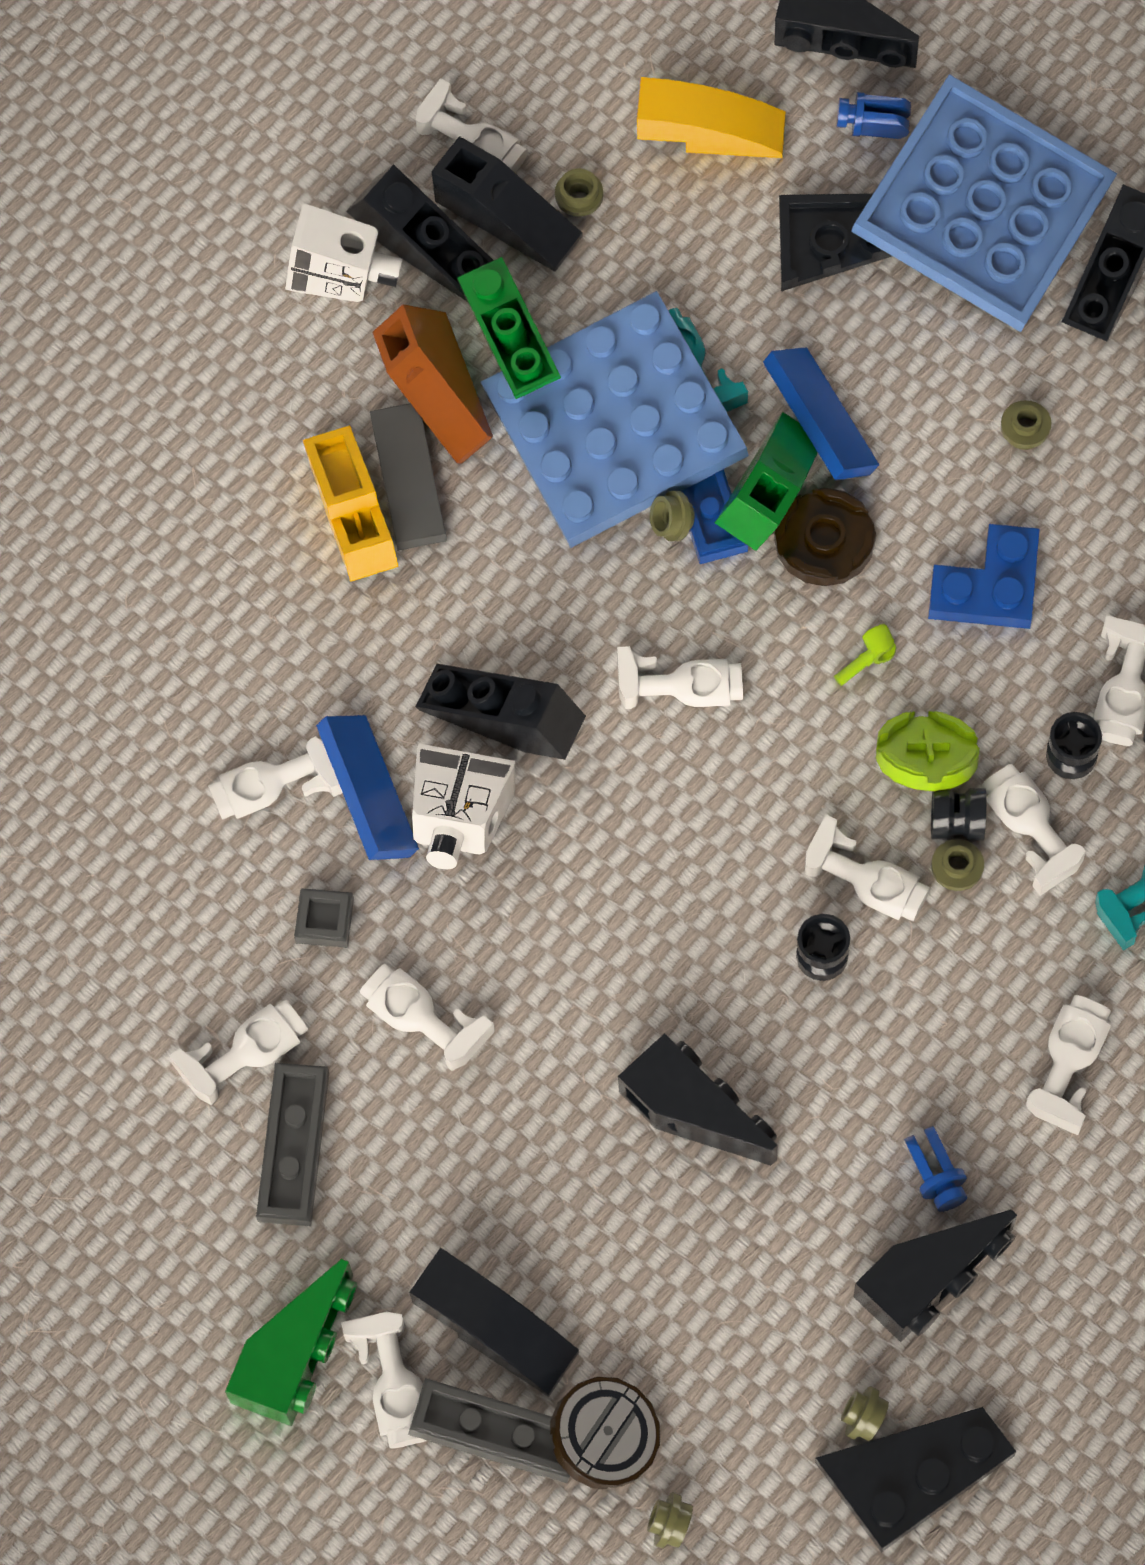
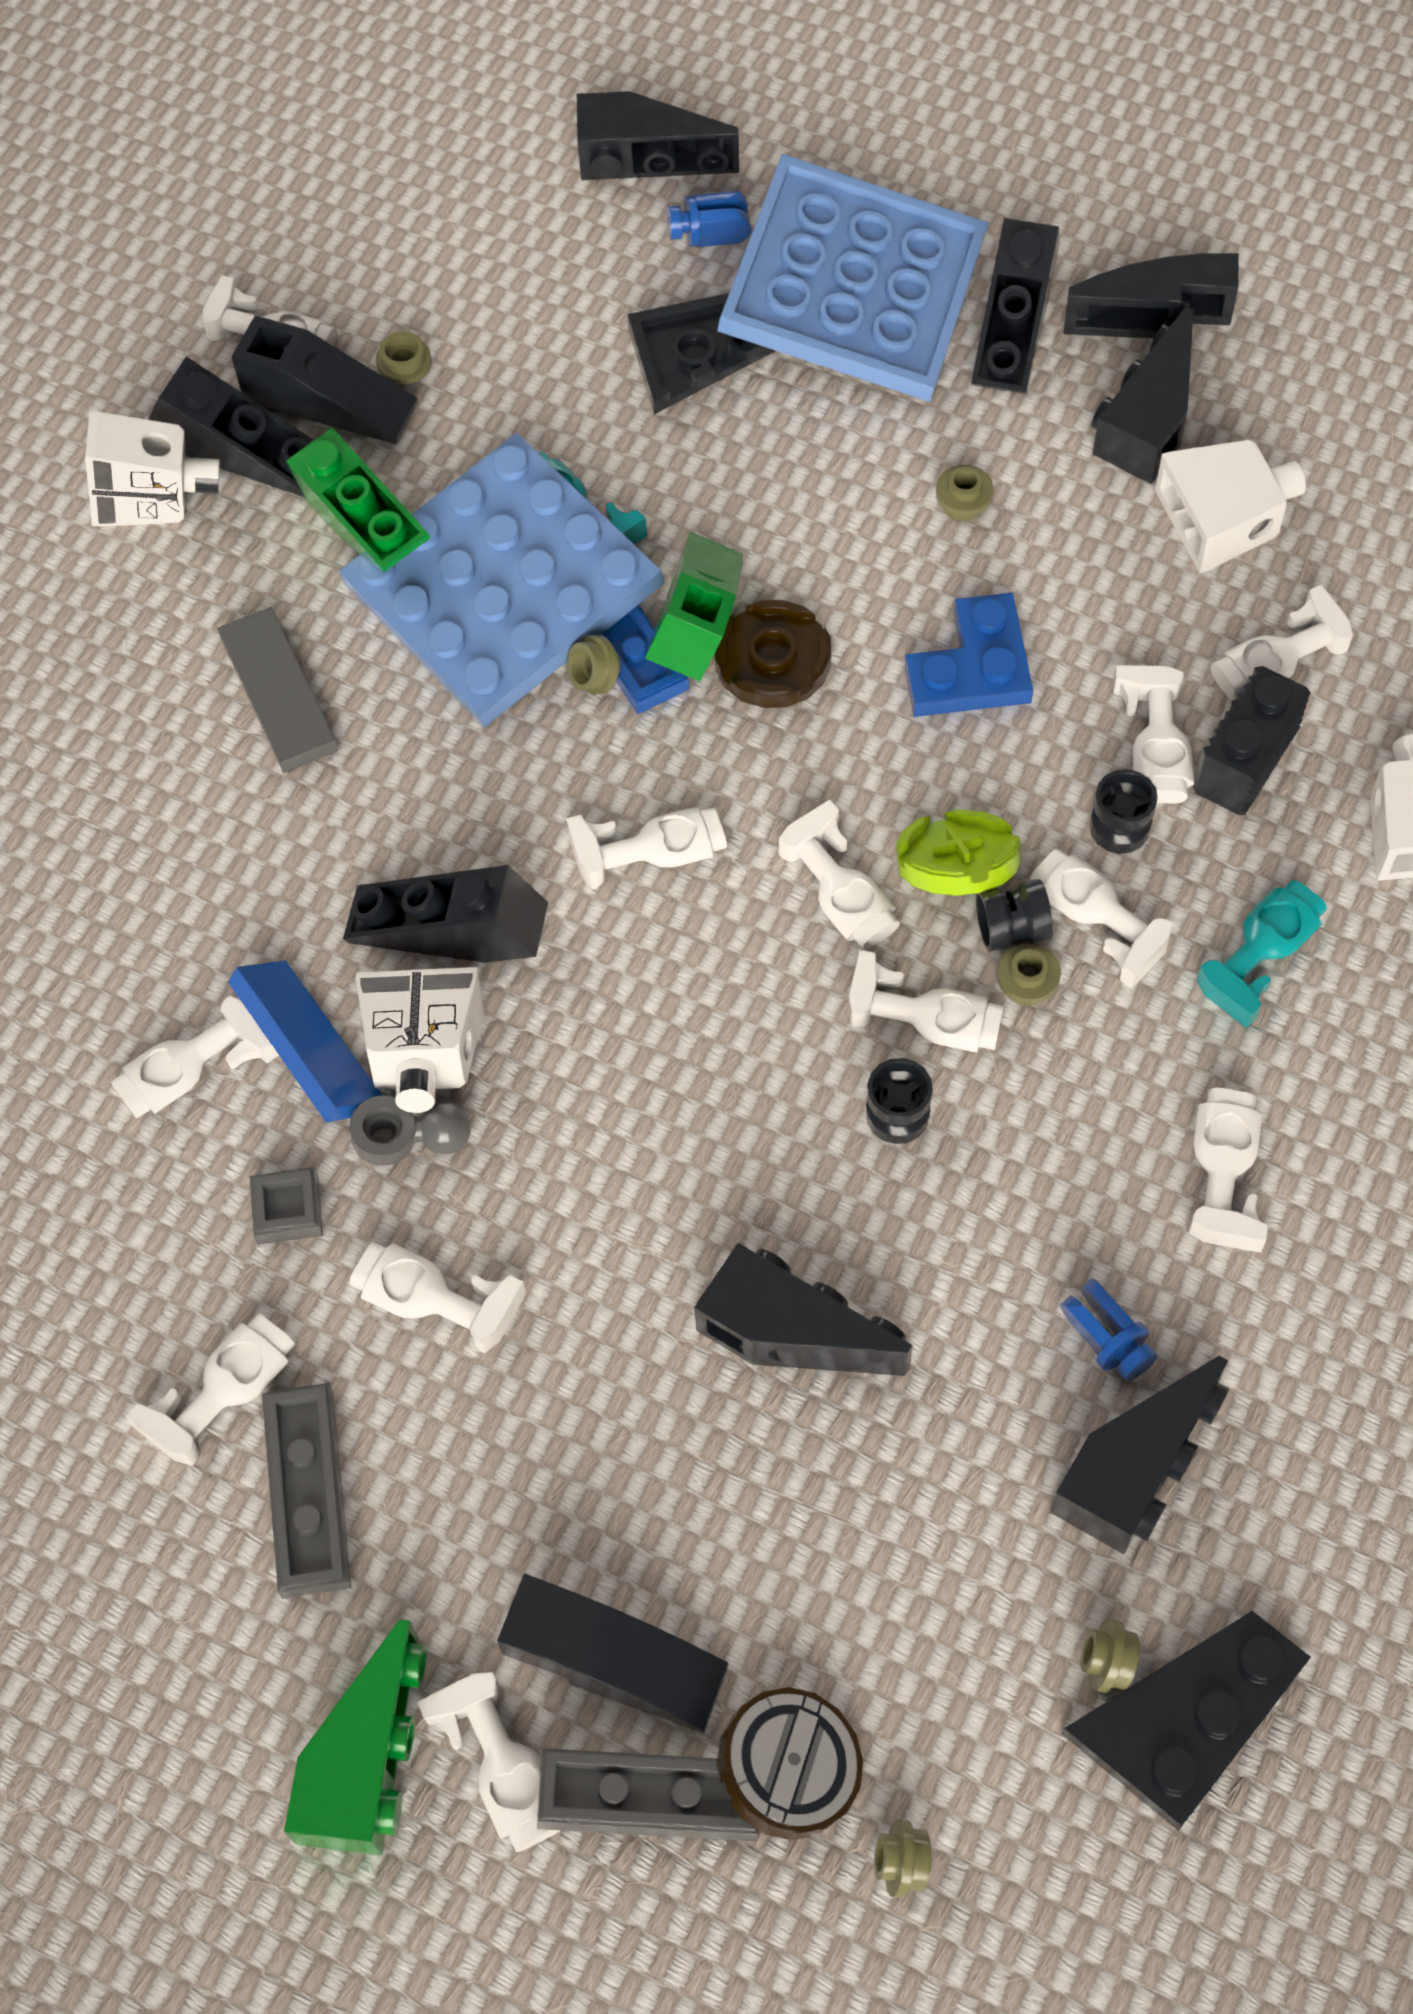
camera: 15 degrees left, 5 degrees down
(350, 503) = (217, 731): yellow slope -> none
(433, 376) = (283, 574): dark orange slope -> none
(458, 885) = (441, 1129): none -> dark grey plate
(708, 119) = (528, 257): yellow slope -> none
(820, 413) = (733, 525): blue tile -> none
(828, 763) = (845, 894): none -> white piece
(880, 650) = (870, 758): lime hand -> none

